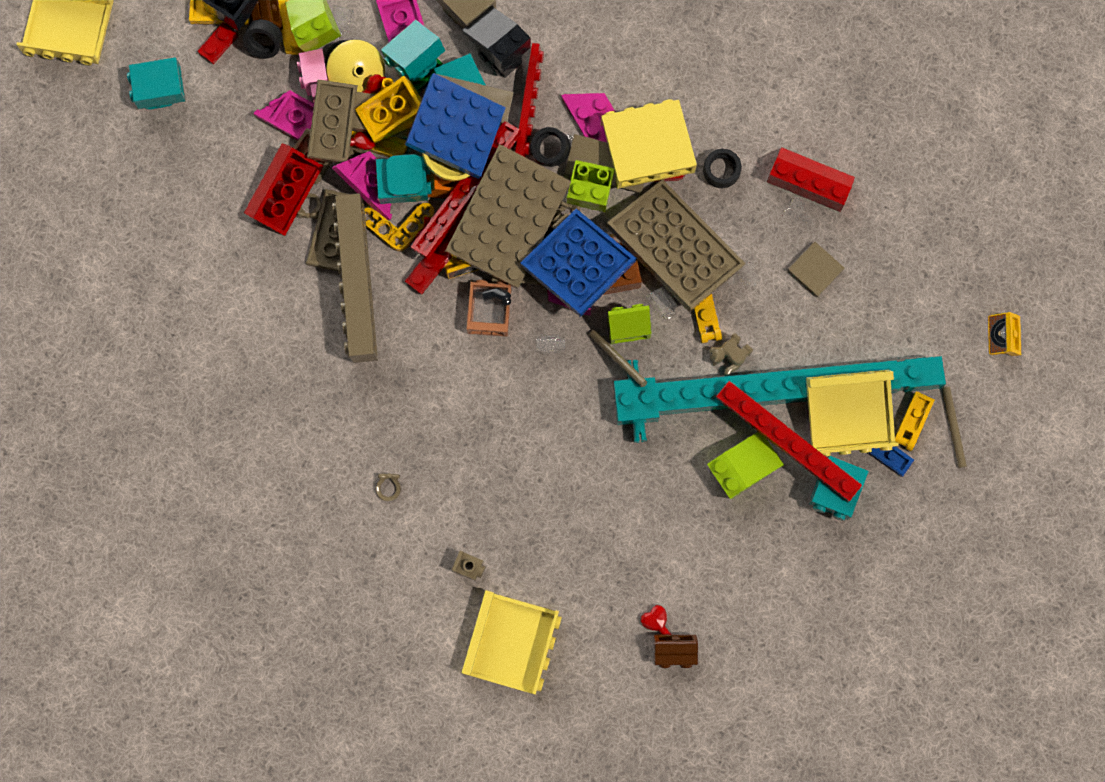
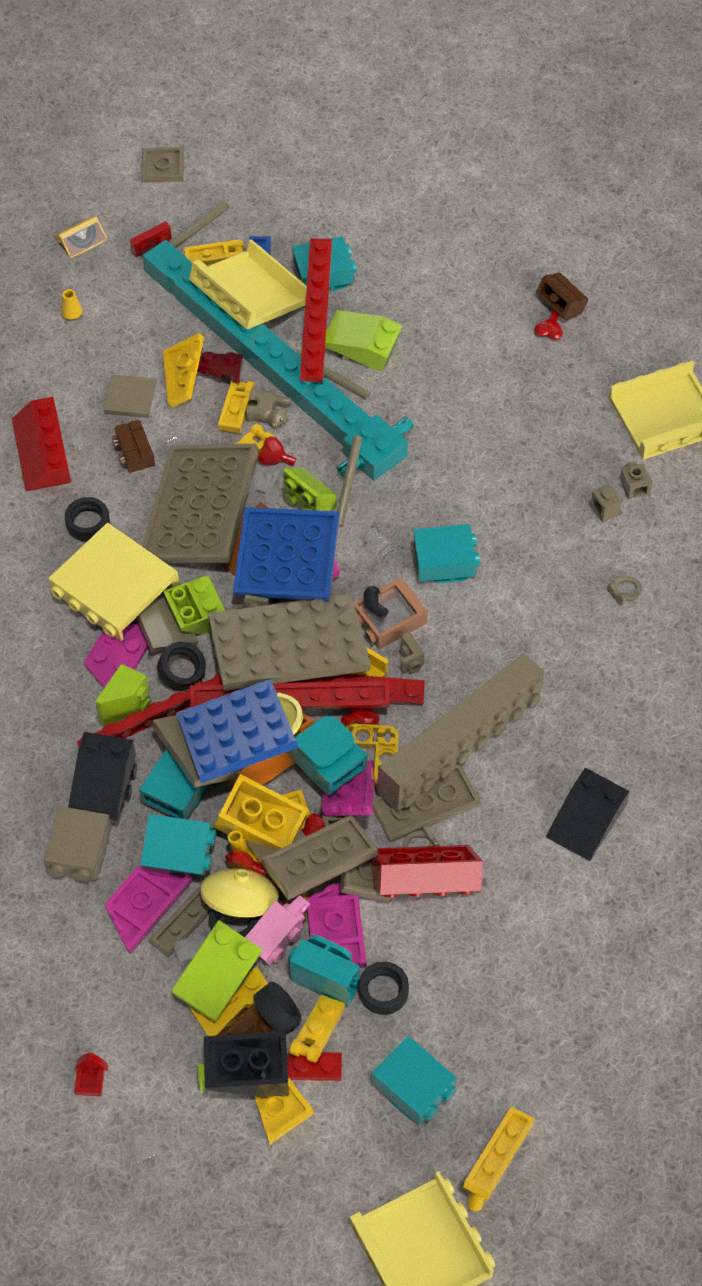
camera: 125 degrees left, 20 degrees down
(76, 97) = (497, 1157): none -> yellow piece
(226, 99) = (383, 1007): none -> black tyre
(235, 57) = (318, 1028): none -> yellow plate
(242, 321) = (588, 814): none -> black slope
(263, 80) = (324, 969): none -> teal brick
(368, 27) = (181, 923): none -> dark tan tile
(449, 302) = (412, 654): none -> dark tan bracket
(463, 527) = (609, 500): none -> dark tan brick
(506, 378) = (445, 553): none -> teal brick
(550, 93) = (123, 695): none -> lime slope
(686, 331) = (274, 453): none -> red rock
(718, 428) = (340, 380): none -> dark tan bar
(751, 335) = (235, 407): none -> yellow plate
(763, 238) = (134, 446): none -> reddish brown brick
(795, 349) = (221, 364): none -> dark red wing
(810, 316) = (181, 368): none -> yellow wing
(932, 280) = (70, 307): none -> yellow cone
(961, 388) = (149, 239): none -> red plate
(1042, 448) = (162, 164): none -> dark tan tile

